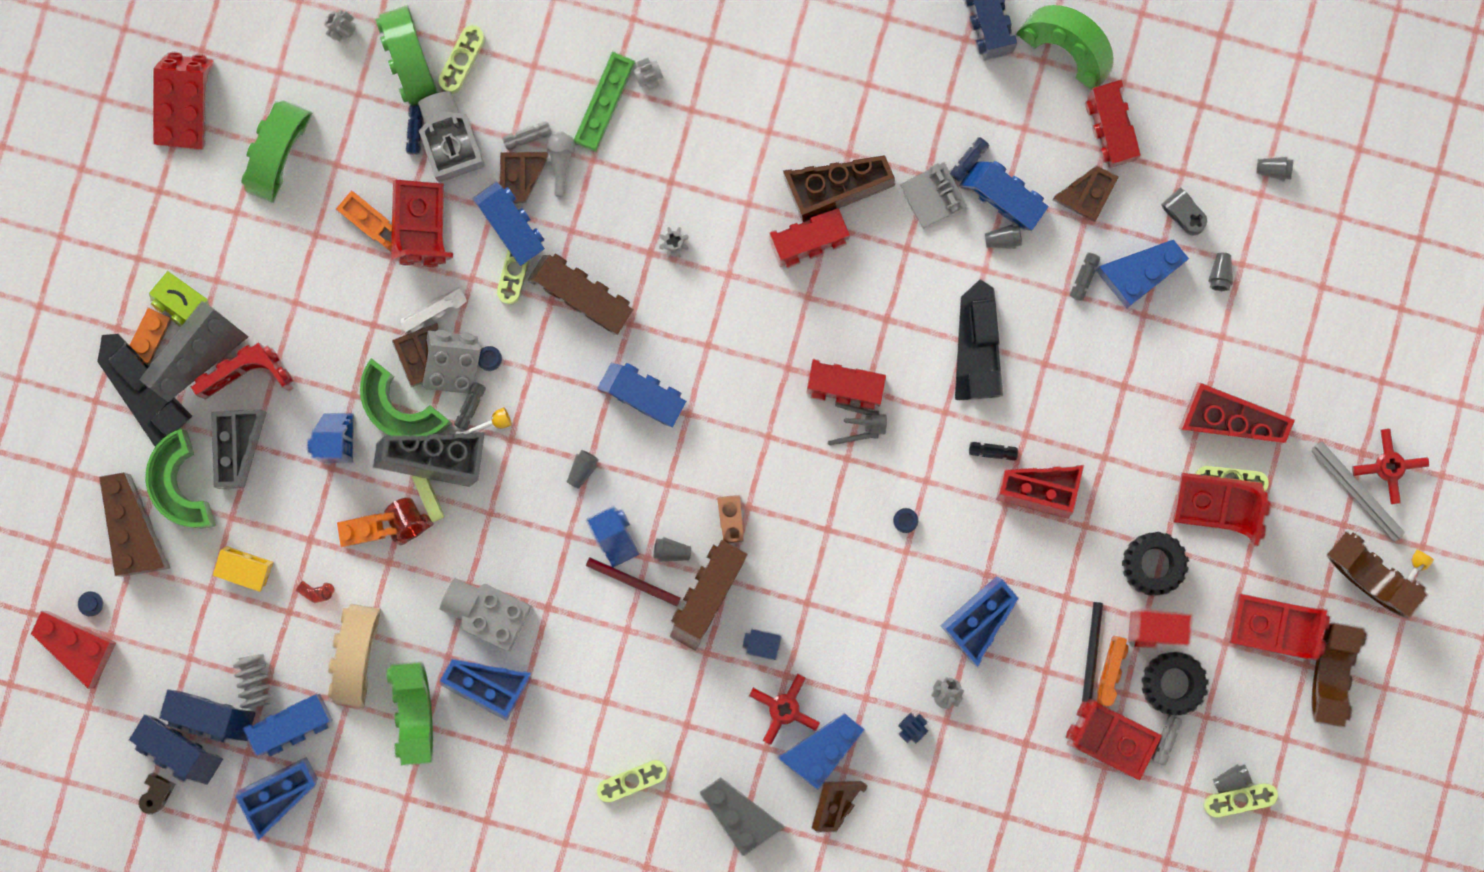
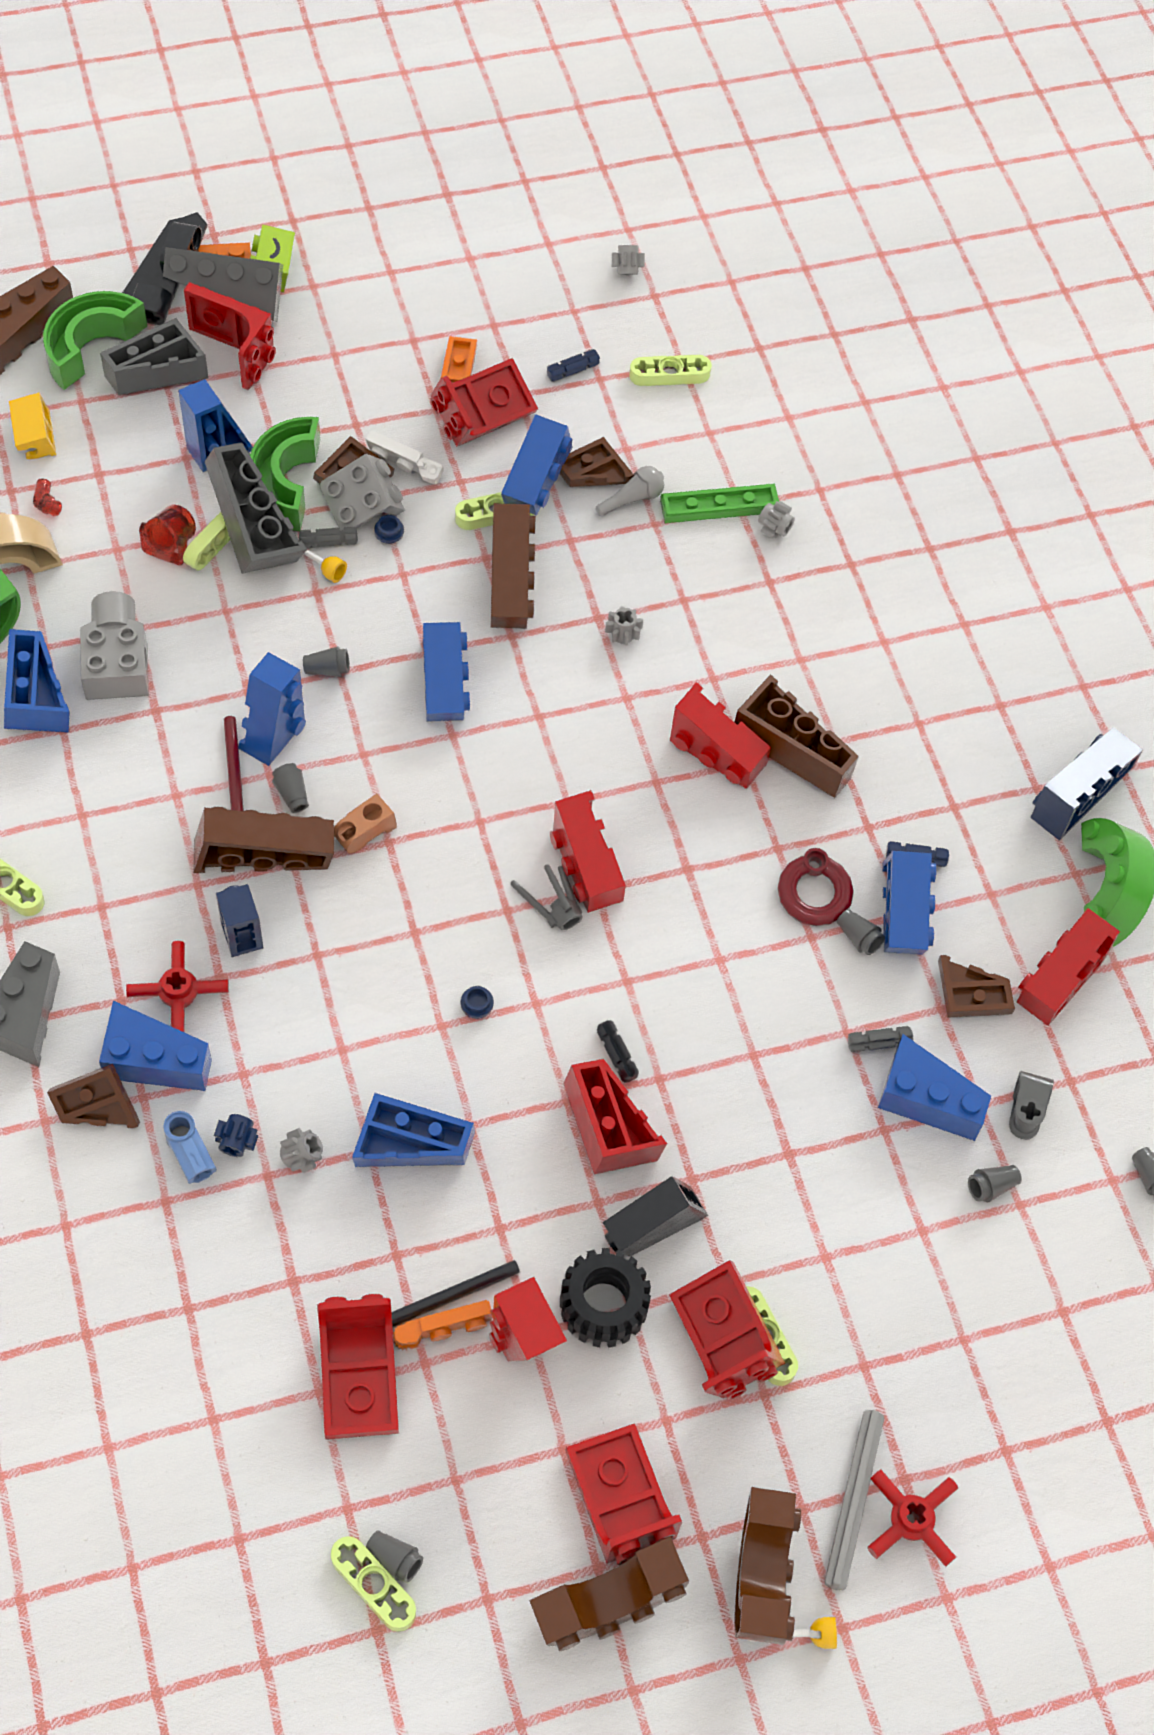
camera: 50 degrees right, 25 degrees down
(180, 100) = (462, 173): red bracket -> none
(272, 149) = (471, 250): bright green brick -> none
(364, 529) = (137, 501): orange hinge -> none
(406, 55) = (634, 316): bright green brick -> none
(448, 138) = (584, 387): light grey brick -> none
(526, 135) = (635, 453): light grey axle -> none
(905, 762) = (188, 1148): none -> medium blue piece
(933, 195) = (855, 839): light grey hinge -> none
(949, 225) = (829, 868): none -> dark red piece
(978, 341) = (712, 977): black panel -> none
(1122, 500) = (654, 1217): none -> black slope
(1167, 740) = (396, 1444): light grey axle -> none
(1196, 687) = (472, 1435): black tyre -> none
(1228, 415) = (838, 1281): red wedge -> none

